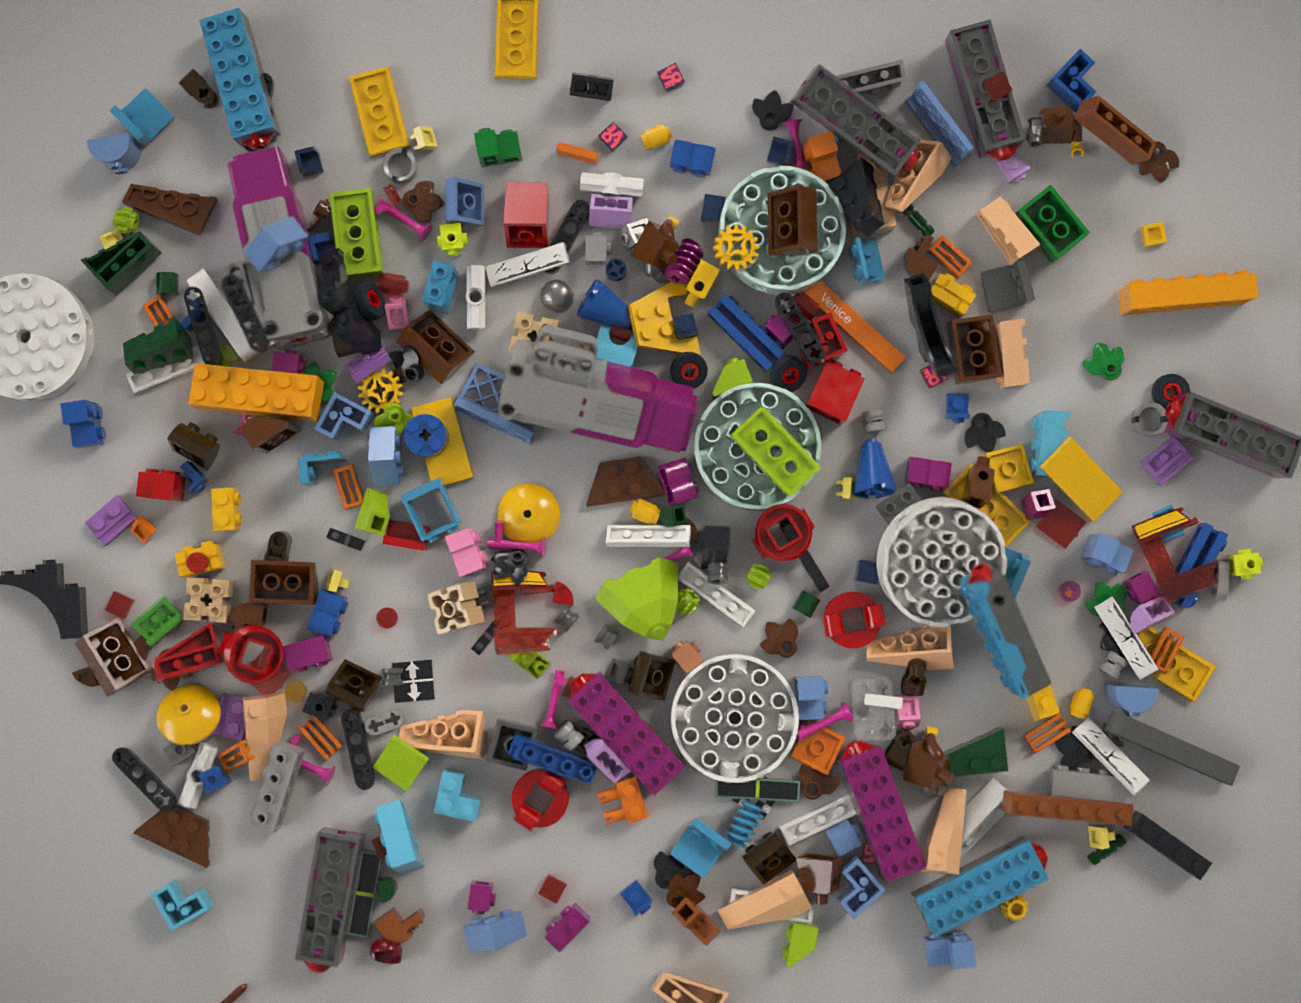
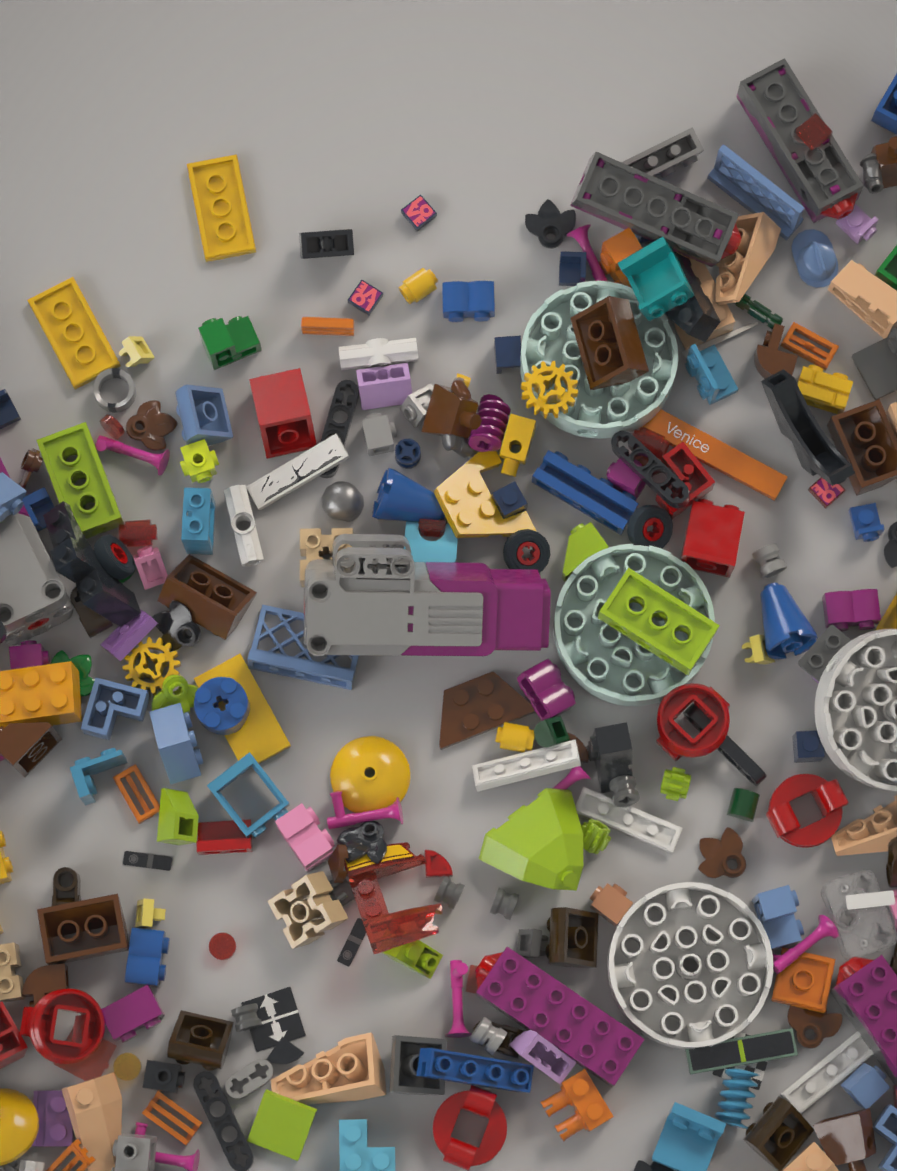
camera: 10 degrees left, 10 degrees down
(415, 709) = (285, 1052): none -> black tile
(485, 578) = (336, 863): none -> reddish brown tile
(842, 178) = (656, 279): none -> teal panel
(880, 235) = (719, 339): none -> white sticker
(972, 186) = (814, 258): none -> medium blue piece

